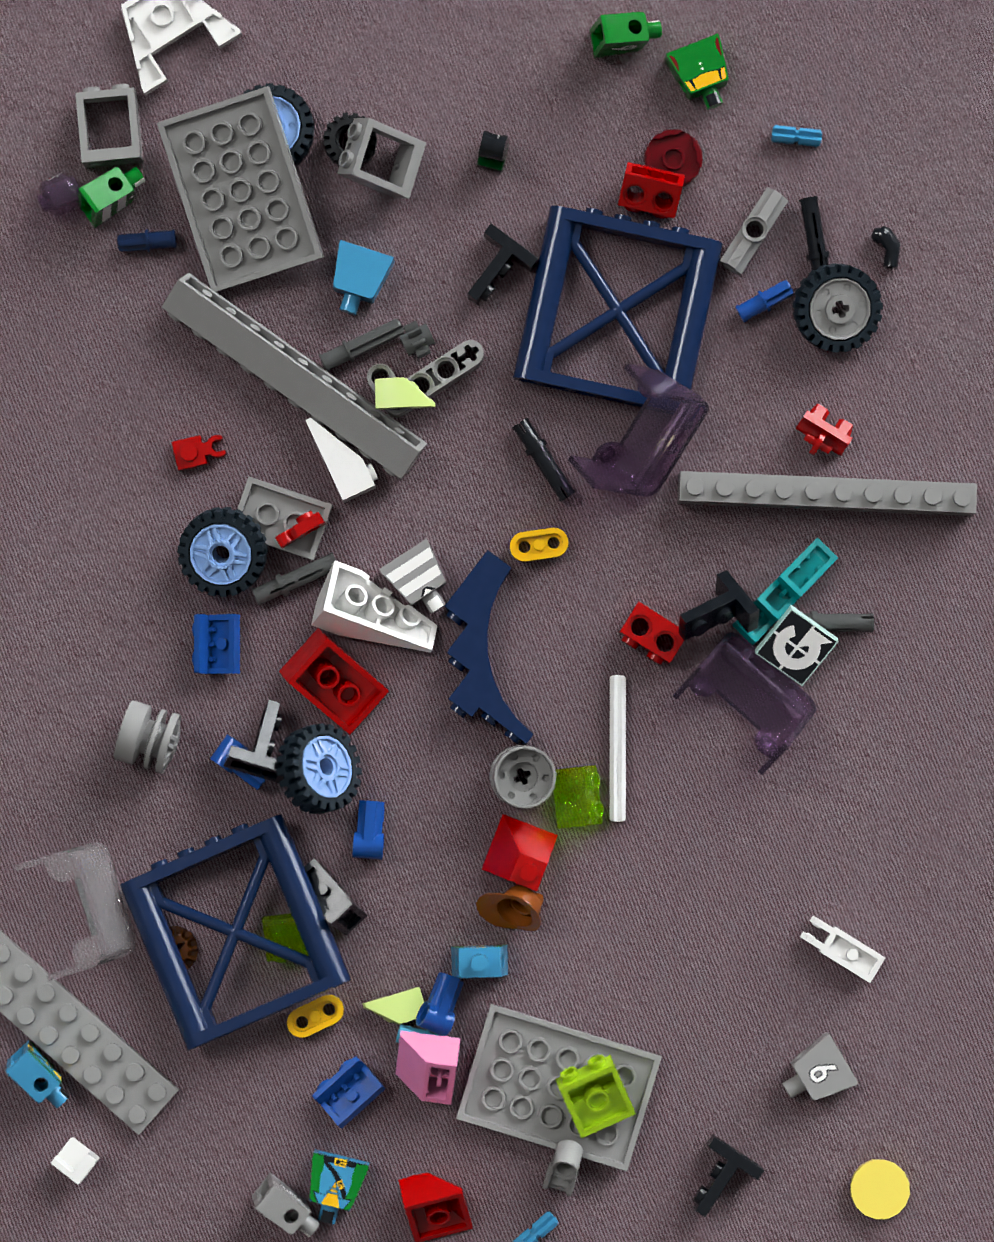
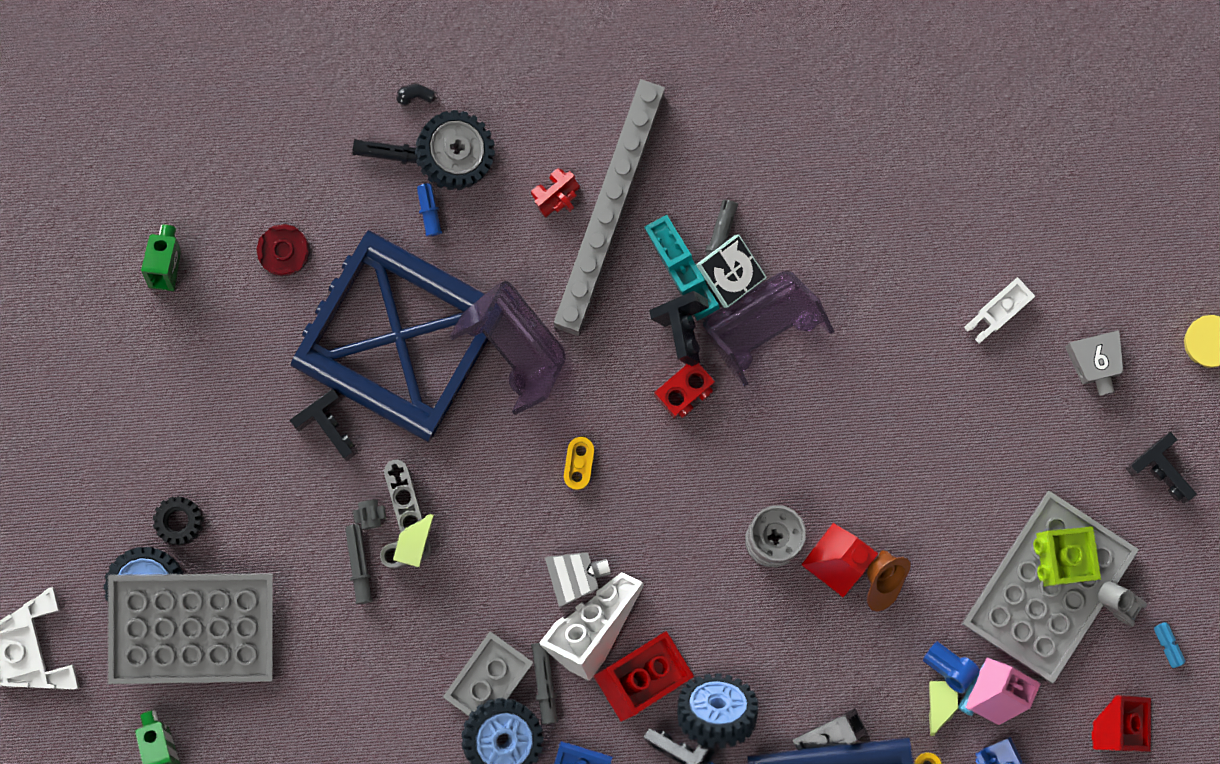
camera: 70 degrees left, 5 degrees down
(109, 156) = (123, 734): light grey window -> none
(147, 241) = (208, 725): dark blue axle -> none
(192, 451) = (406, 741): red plate -> none
(293, 375) = (366, 631): light grey brick -> none
(305, 525) = (501, 658): red plate -> none
(345, 466) = (459, 610): white slope -> none
(359, 275) = (297, 547): dark azure torso -> none
(368, 838) = (788, 686): blue piece -> none
(405, 164) = (214, 479): light grey window -> none
(478, 689) = (688, 552): dark blue arch -> none
(479, 961) = (923, 623): dark azure torso -> none
(493, 151) = (227, 400): black leg -> none
(543, 459) = (506, 437): black pin -> none
(577, 797) = (806, 495): clear neon green bracket -> none
(617, 805) = (773, 449): white axle -> none
(652, 182) = (299, 272): red brick -> none
(700, 70) = (214, 204): green torso -> none
(764, 216) = (377, 212): light grey piece -> none
(803, 136) = (298, 137): dark azure piece -> none

